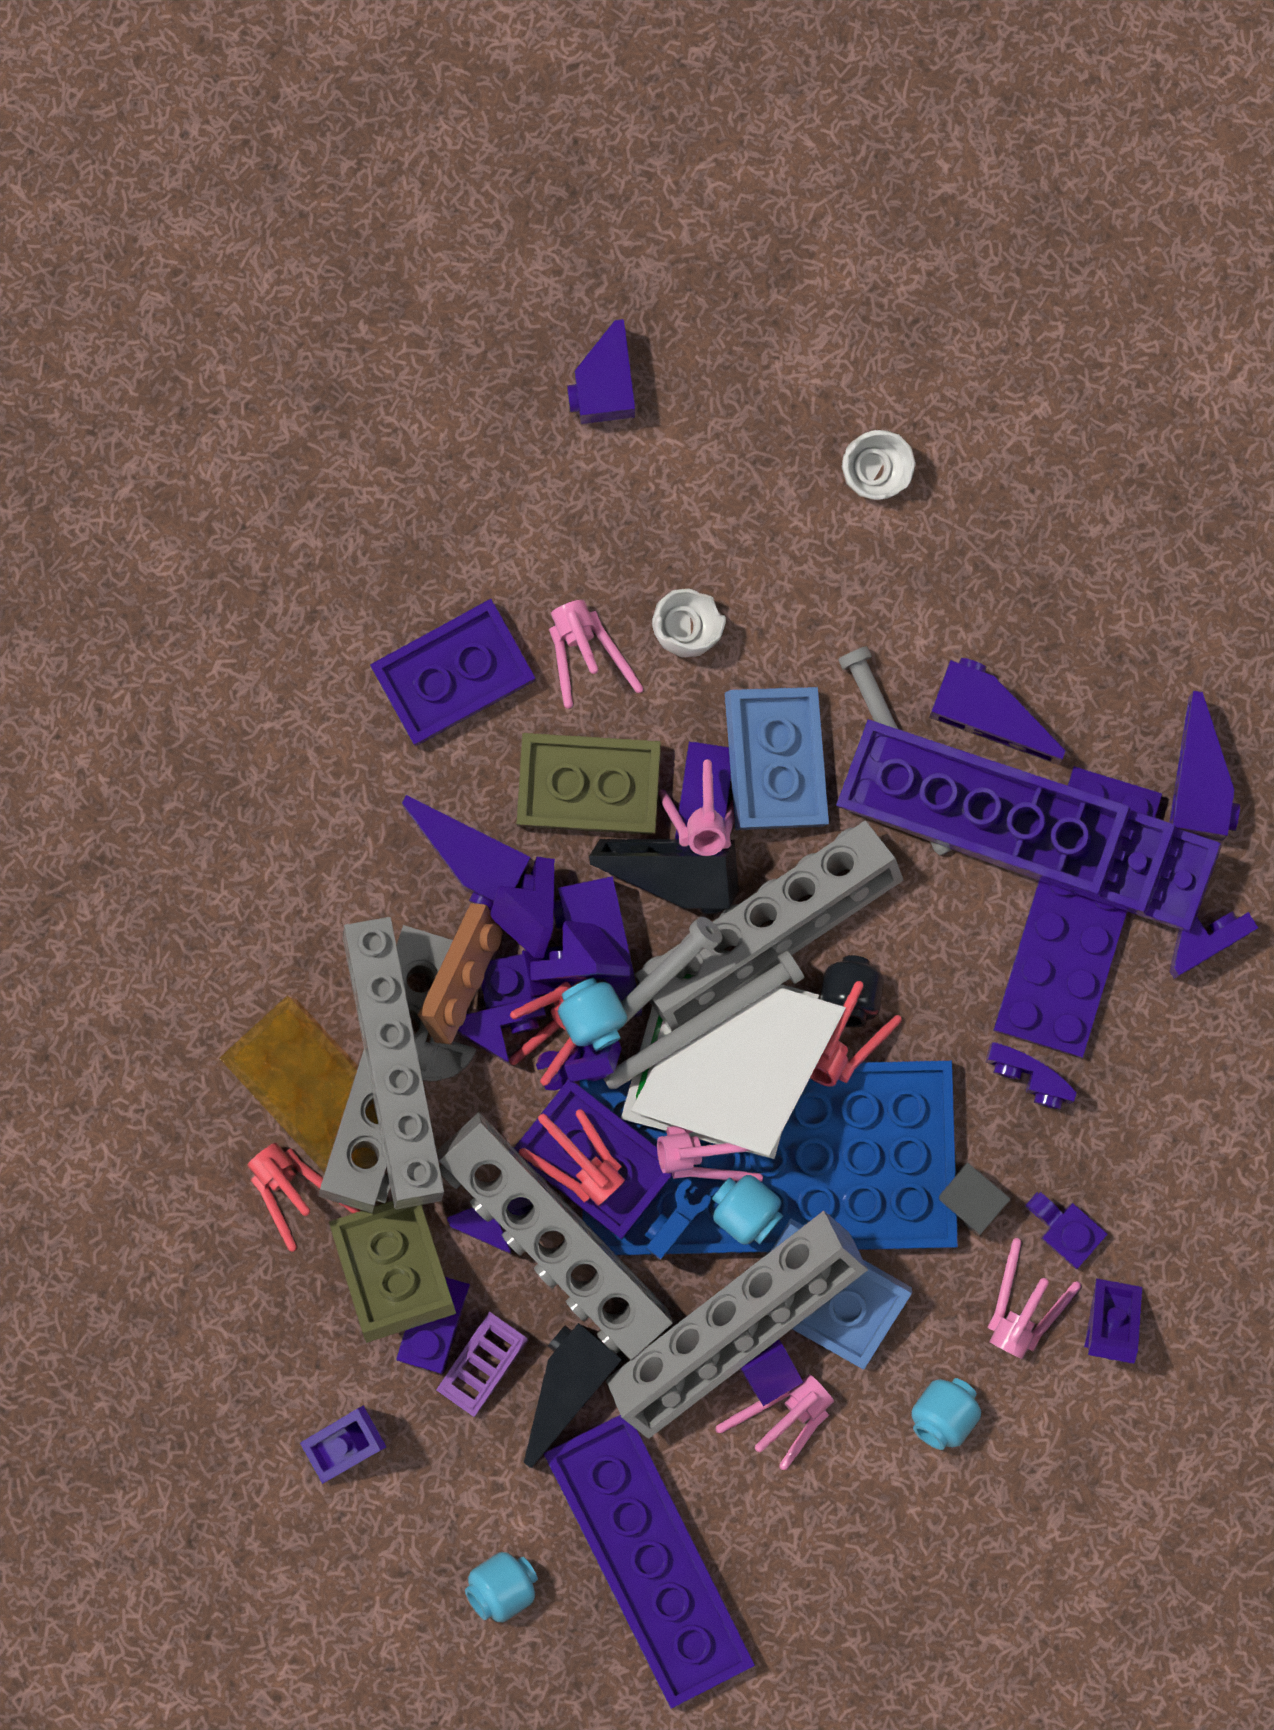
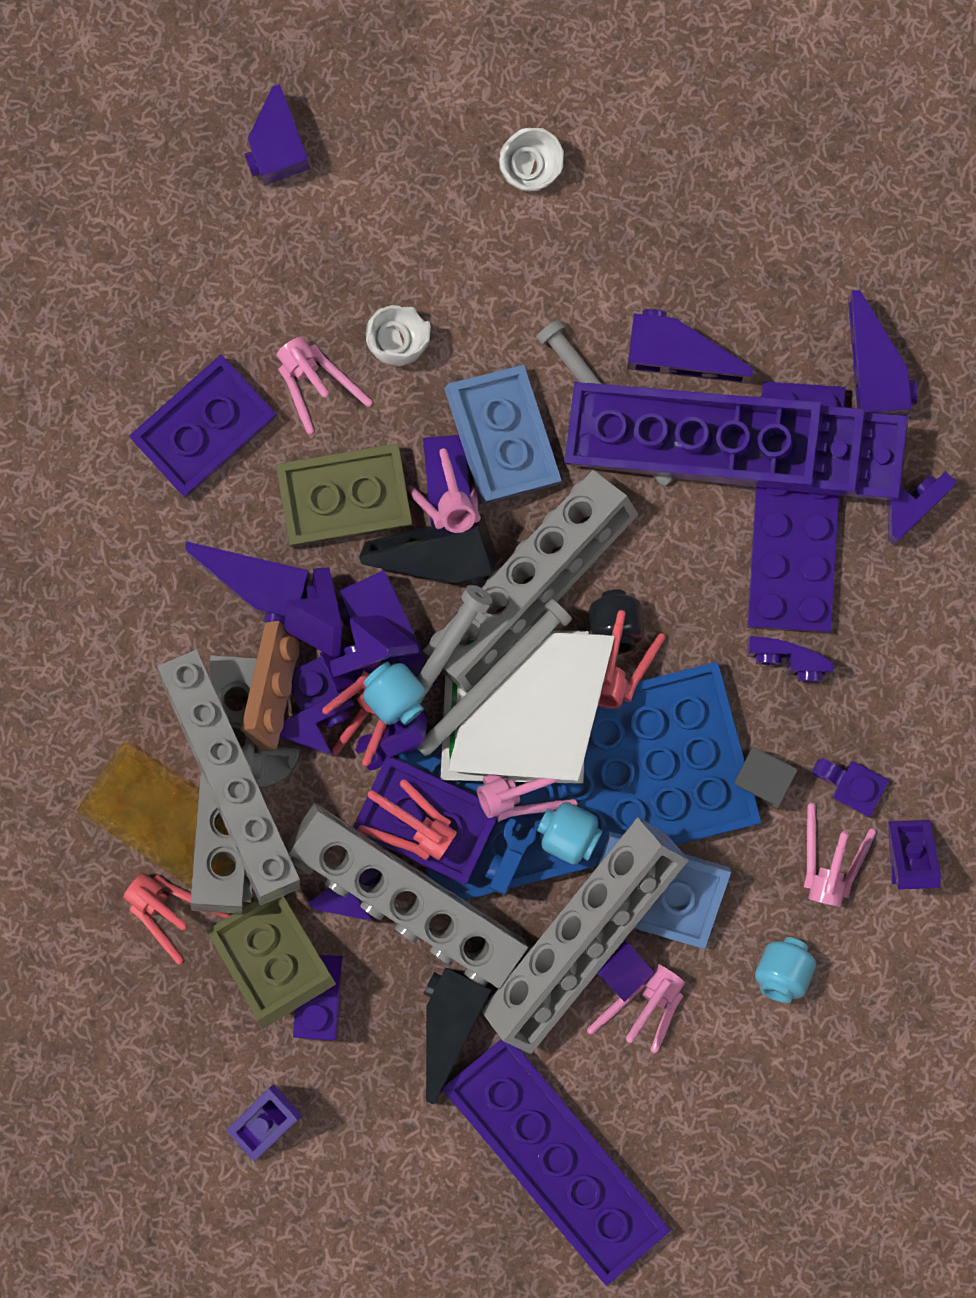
camera: 10 degrees left, 0 degrees up
(501, 1587) = (432, 1214): medium azure head -> none
(504, 1331) = (385, 991): medium lavender slope -> none

